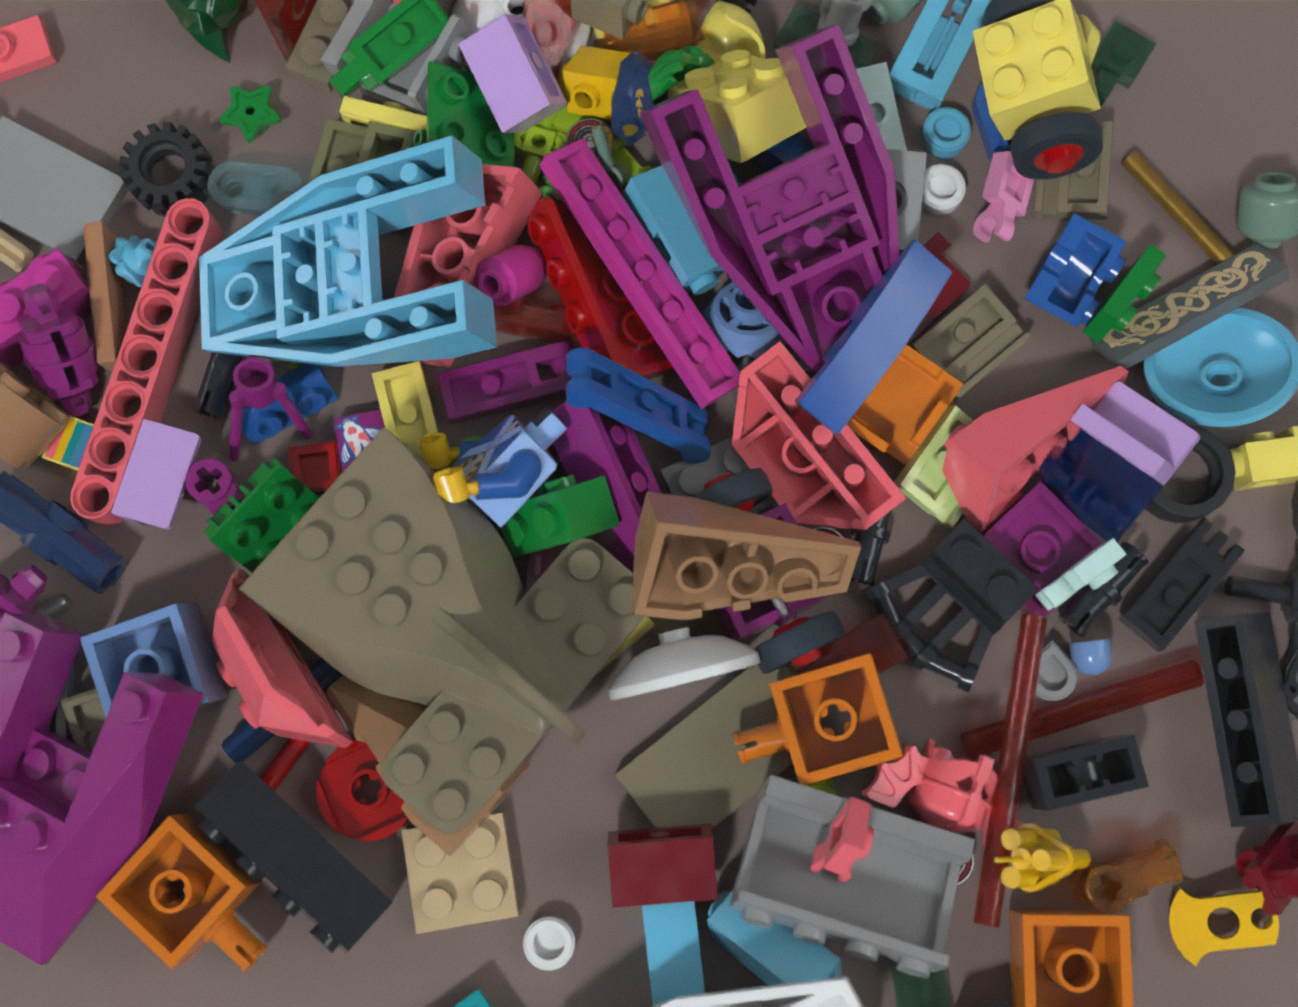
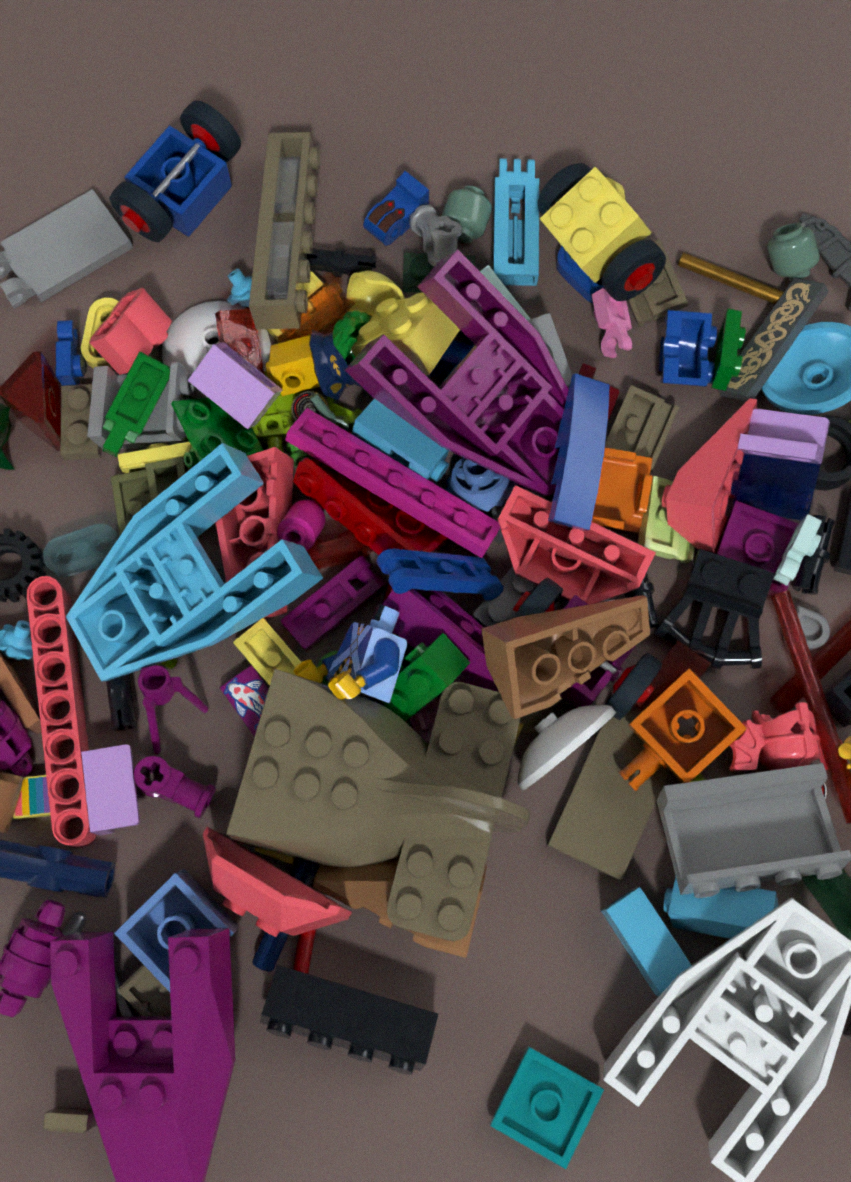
camera: 30 degrees left, 5 degrees down
(214, 888) = (291, 1111): orange brick -> none
(252, 124) = (50, 507): green plate -> none
(262, 517) = (211, 781): green hinge -> none
(306, 389) = (195, 677): blue hinge -> none
(316, 465) = (223, 730): red tile -> none
(341, 806) = (376, 967): red plate -> none
(465, 887) = (480, 980): tan plate -> none
(549, 943) = (561, 989): white tile -> none
(662, 865) = (616, 890): dark red panel -> none
(847, 840) = (740, 805): coral plate -> none
(942, 189) = (570, 334): white tile -> none
(945, 132) = (550, 295): medium azure tile -> none
(1091, 656) = (830, 603): medium blue hinge -> none
(1120, 59) = (642, 193): clear green plate -> none

